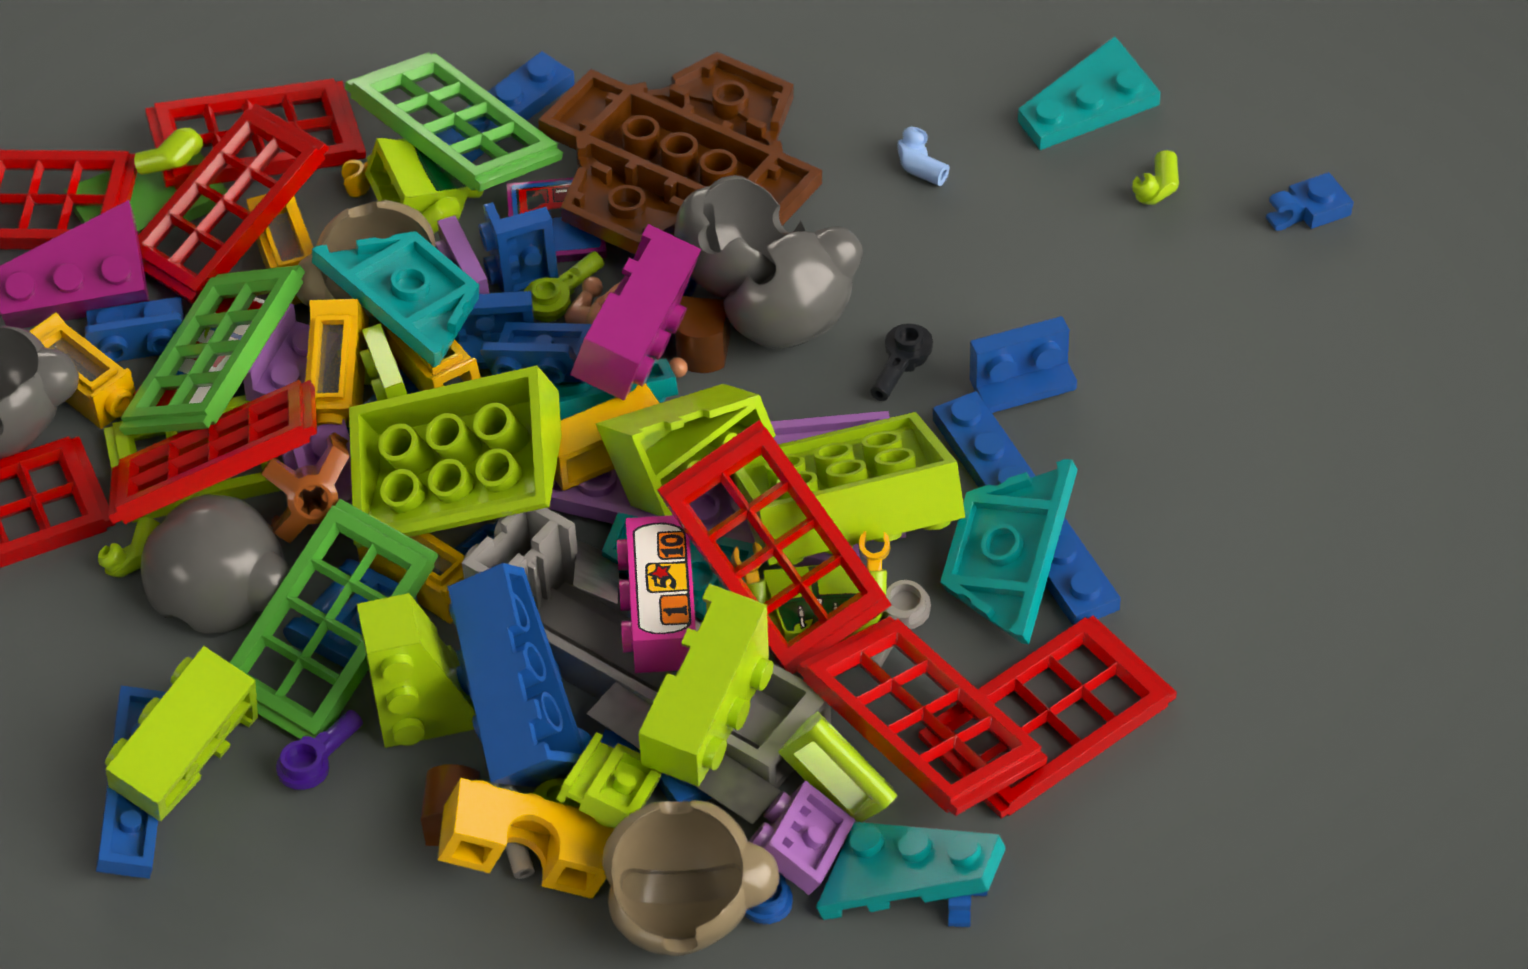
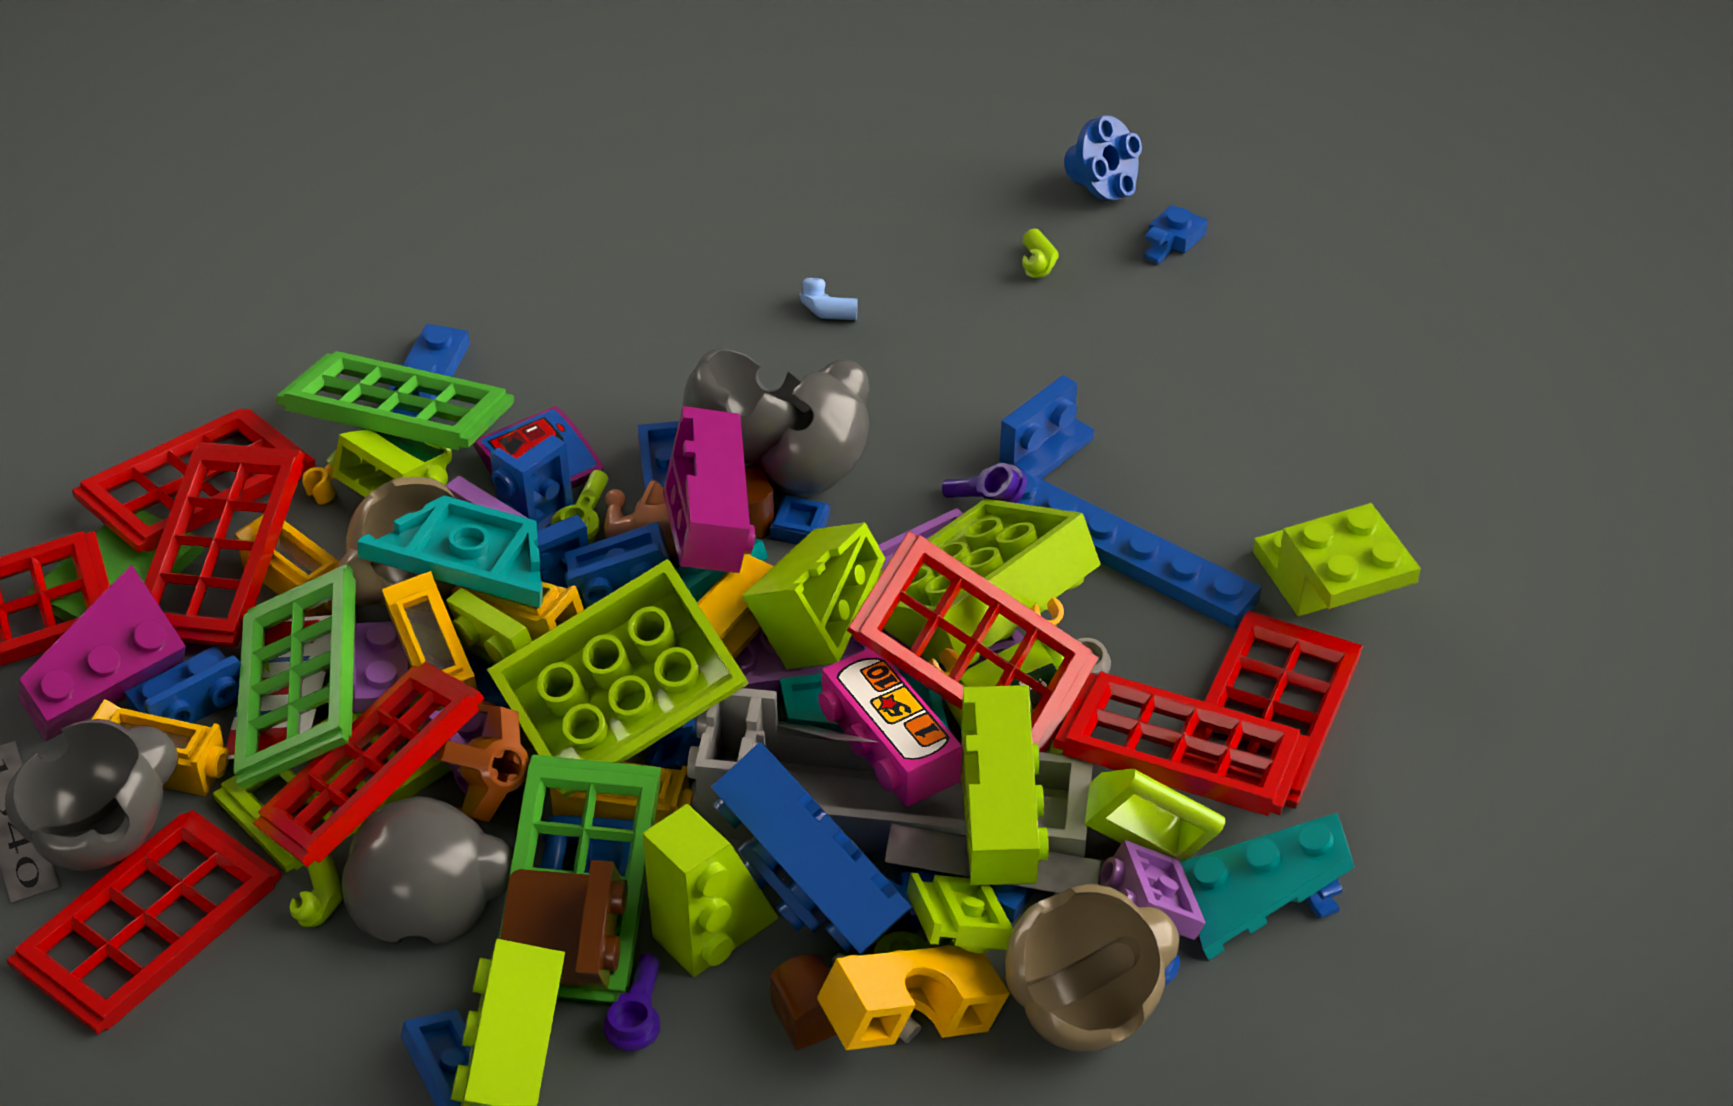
camera: 30 degrees left, 5 degrees down
(171, 154) = (133, 517): lime arm -> none
(289, 656) = (569, 916): none -> reddish brown bracket
(657, 146) = (613, 365): reddish brown plate -> none
(747, 368) = (798, 518): none -> blue tile
(907, 349) = (929, 456): black plate -> none
(934, 402) = (998, 482): none -> dark purple plate
(1008, 546) = (1146, 581): teal wing -> none
(1089, 96) = (933, 211): teal wing -> none
(1200, 599) = (1336, 560): none -> lime bracket
(1288, 100) = (1105, 159): none -> blue plate

